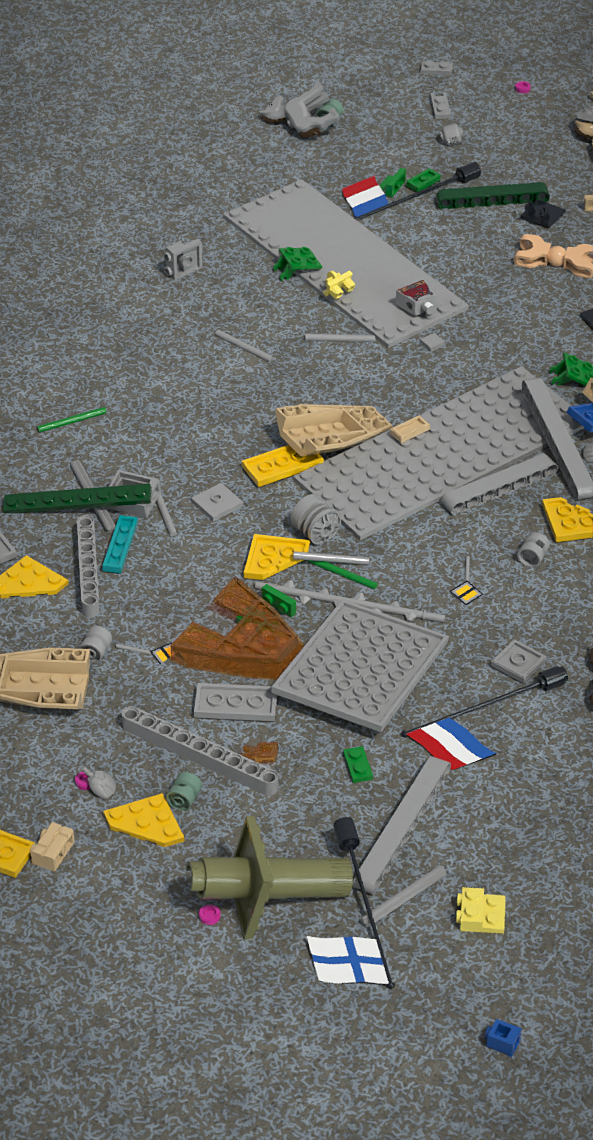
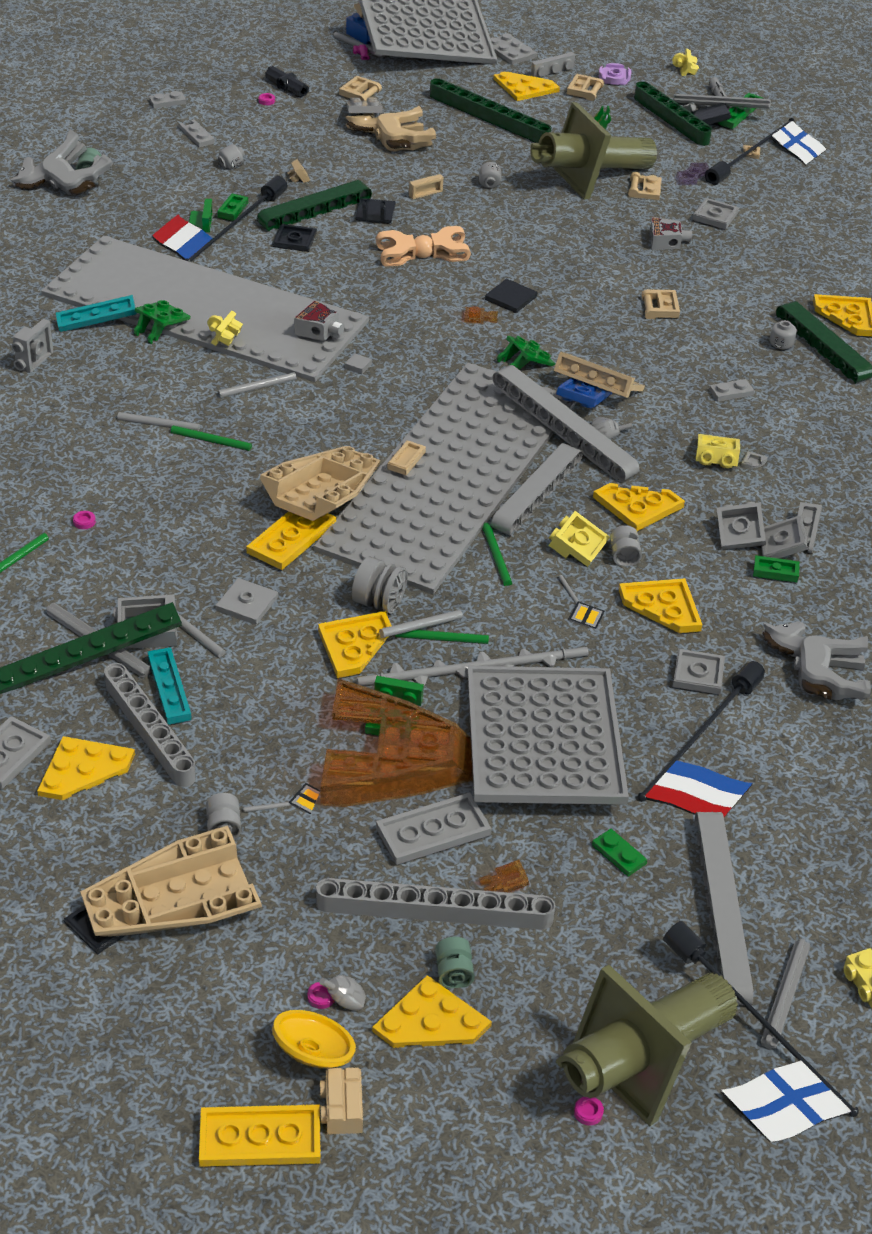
camera: 30 degrees left, 0 degrees up
(56, 801) = (313, 1039): none -> yellow dish
(140, 405) = (84, 520): none -> dark pink tile
(250, 244) = (96, 313): none -> teal plate
(275, 370) = (211, 438): none -> green bar
(430, 526) = (504, 574): none -> green bar
(457, 220) = (294, 237): none -> black tile
(500, 162) = (298, 172): none -> tan tile
(500, 532) = (578, 538): none -> light yellow plate
(531, 602) = (664, 602): none -> yellow plate
(550, 74) = (286, 81): none -> black piece
(563, 328) = (478, 315): none -> clear orange plate

